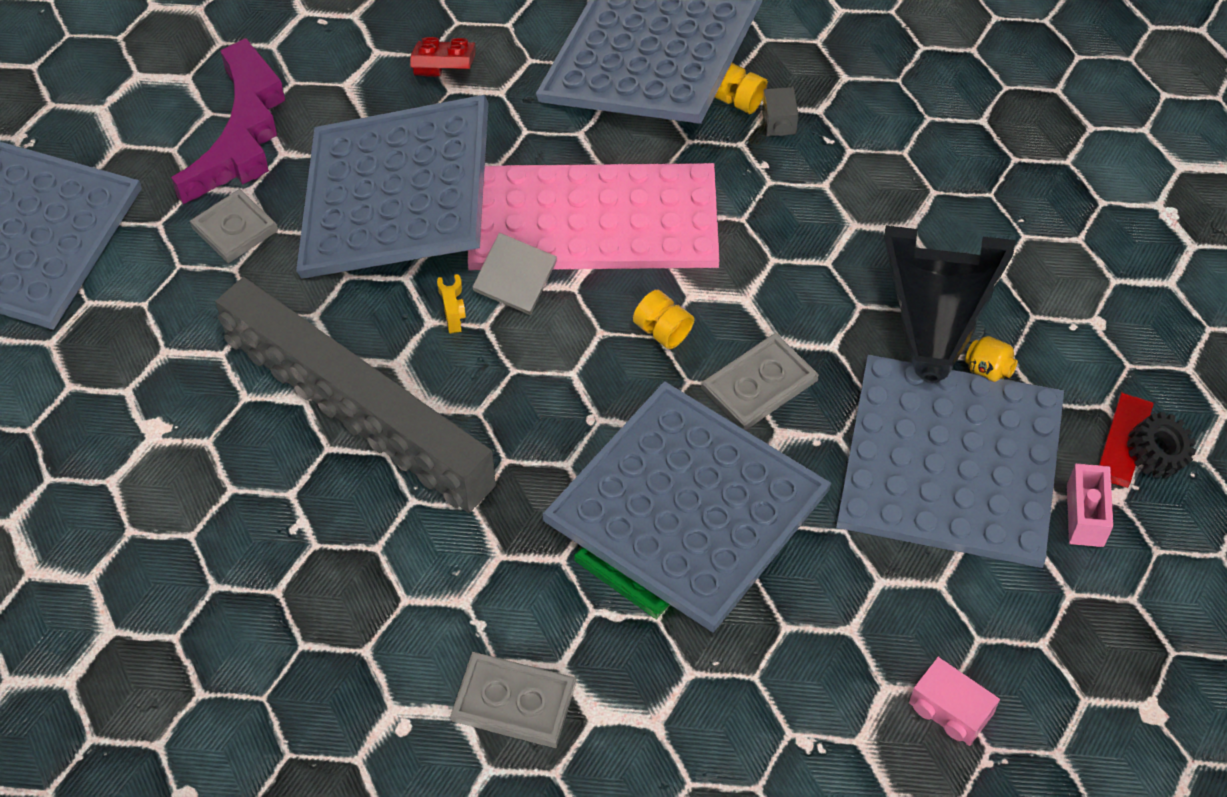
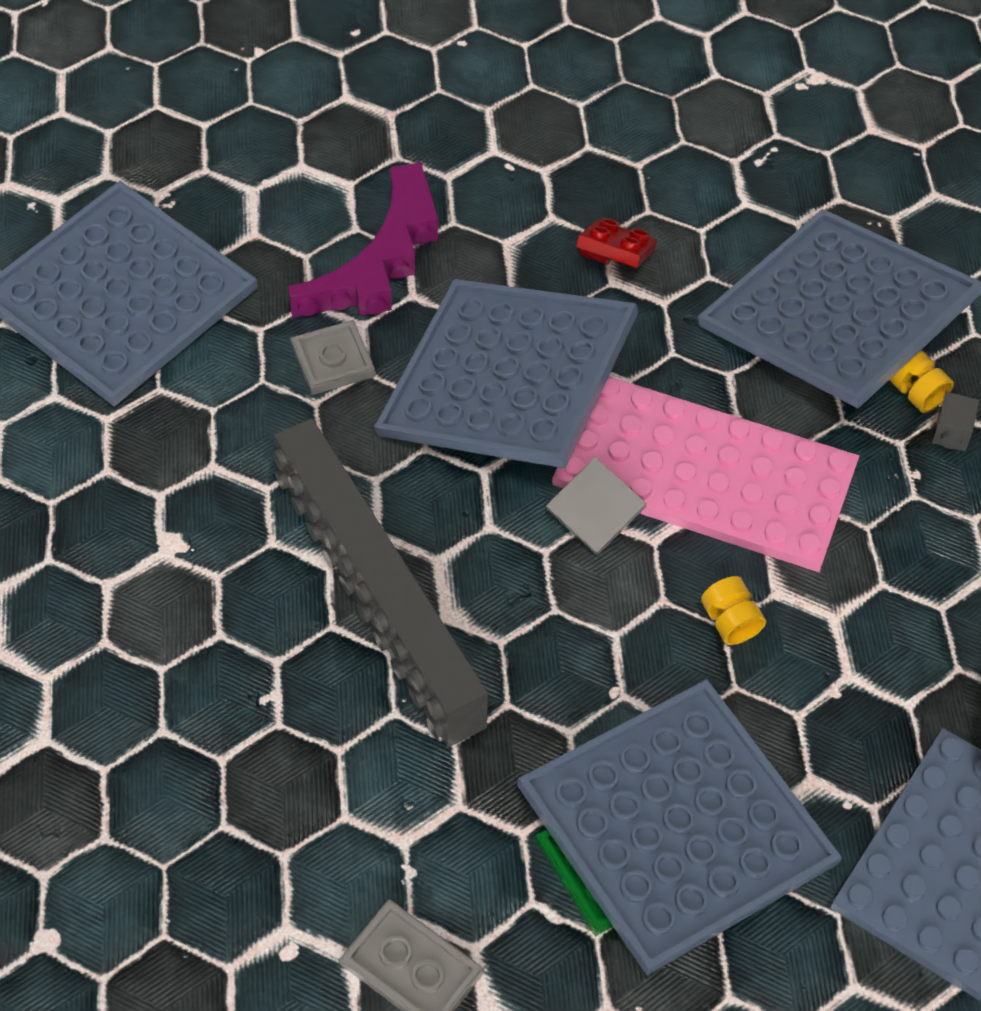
camera: 20 degrees right, 0 degrees up
(453, 308) = (517, 520): yellow plate -> none
(759, 381) = (811, 715): light grey tile -> none

